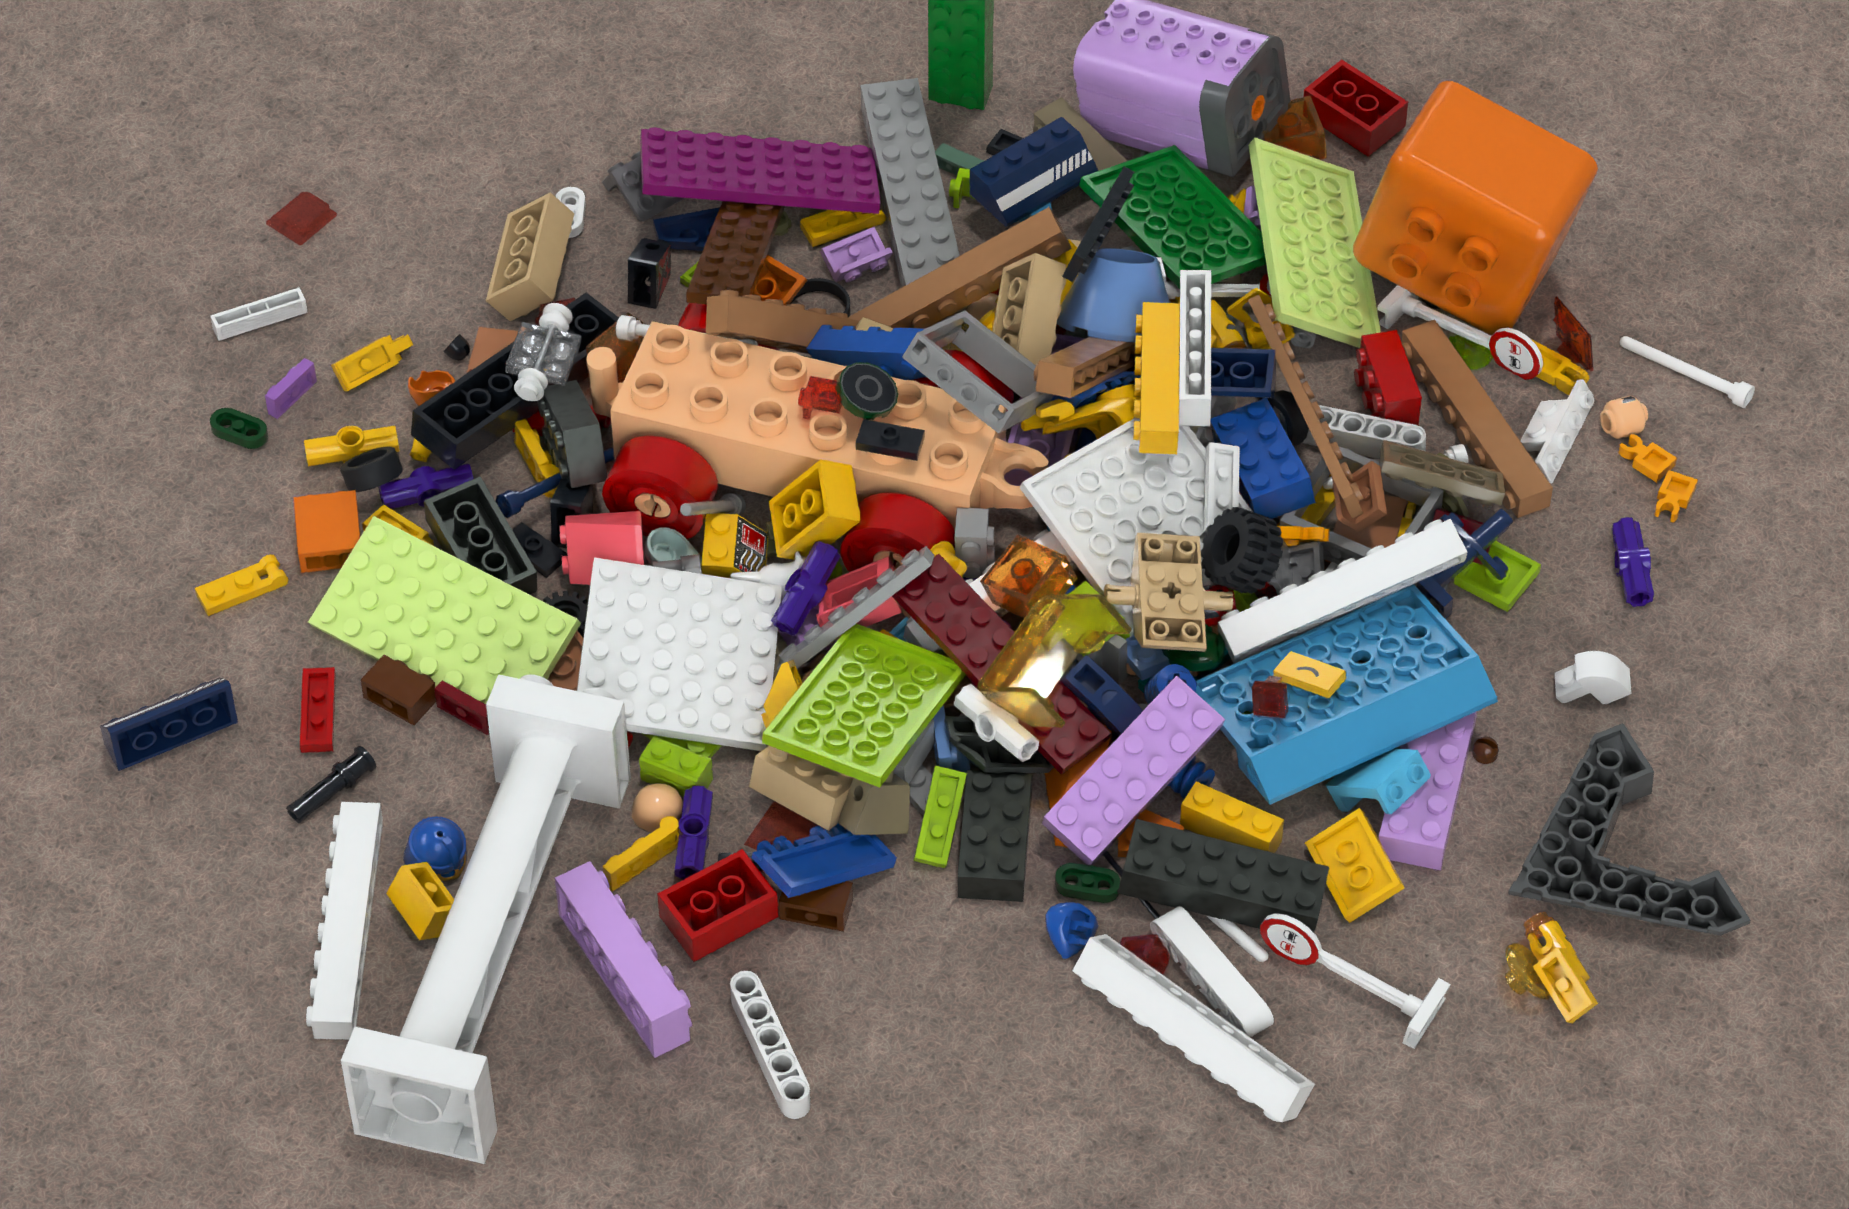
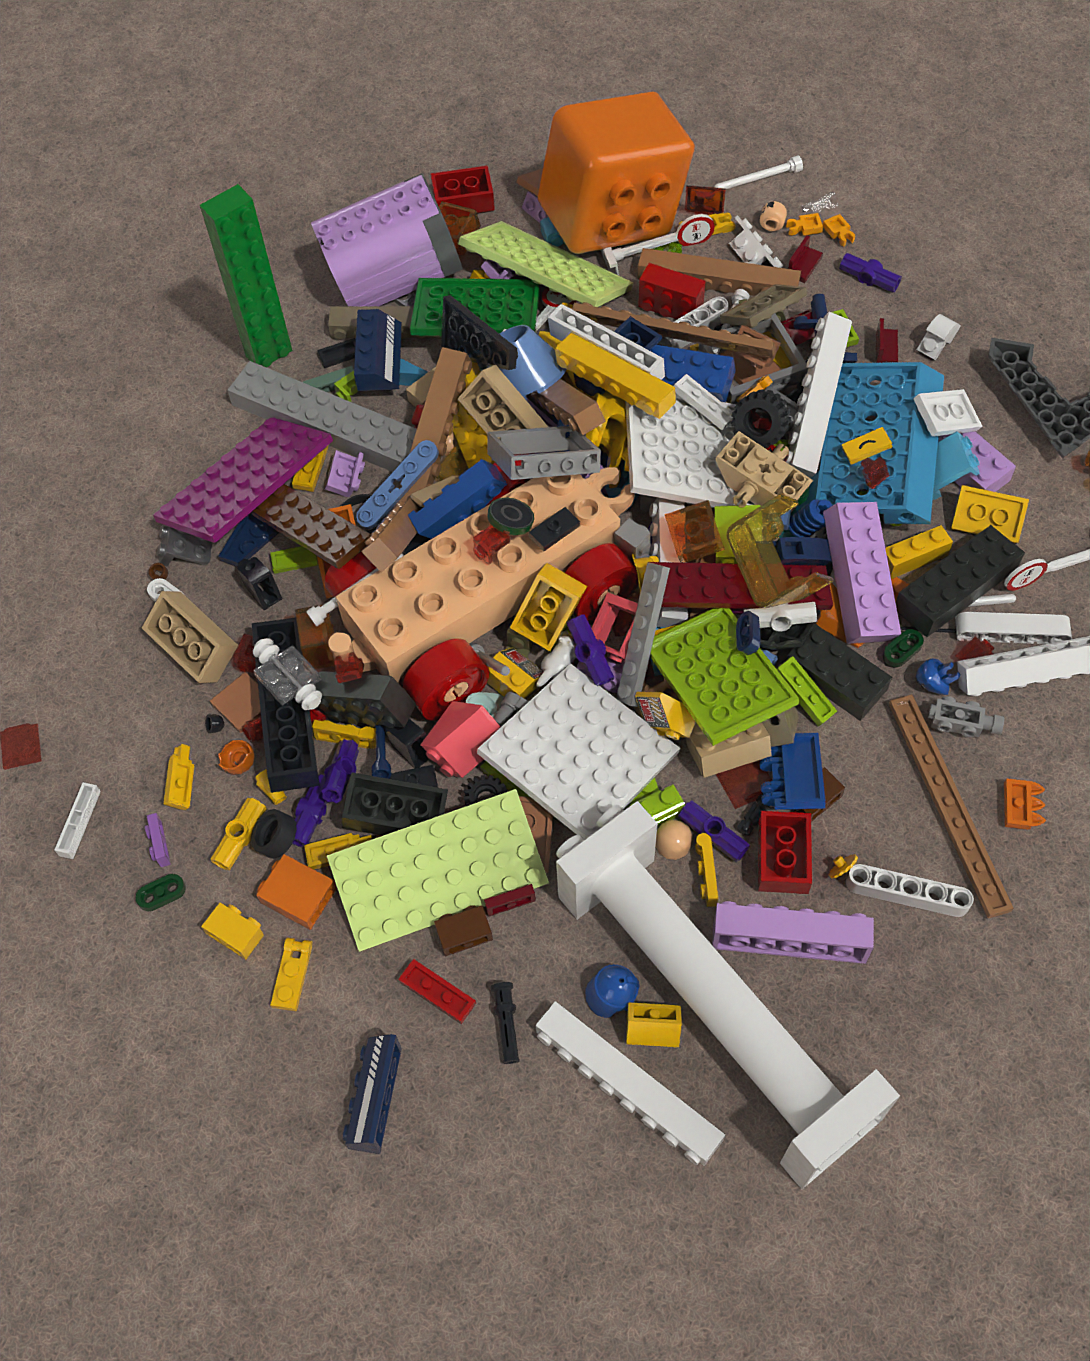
camera: 50 degrees left, 10 degrees up
(246, 508) = (233, 930): none -> yellow brick
(500, 474) = (340, 770): none -> dark purple piece
(586, 389) = (350, 669): none -> clear red tile
(588, 180) = (160, 568): none -> reddish brown hinge
(748, 964) = (842, 865): none -> yellow piece
(887, 298) = (413, 468): none -> medium blue piece
(914, 1030) = (951, 807): none -> medium nougat plate
(918, 700) = (748, 633): none -> dark blue plate
(973, 1095) = (1020, 804): none -> orange plate
(1041, 988) = (962, 718): none -> light grey brick
(1435, 725) = (947, 412): none -> white plate
(1529, 636) = (886, 344): none -> dark red panel
(1584, 485) = (805, 259): none -> dark red panel
(1688, 452) = (817, 205): none -> clear plate

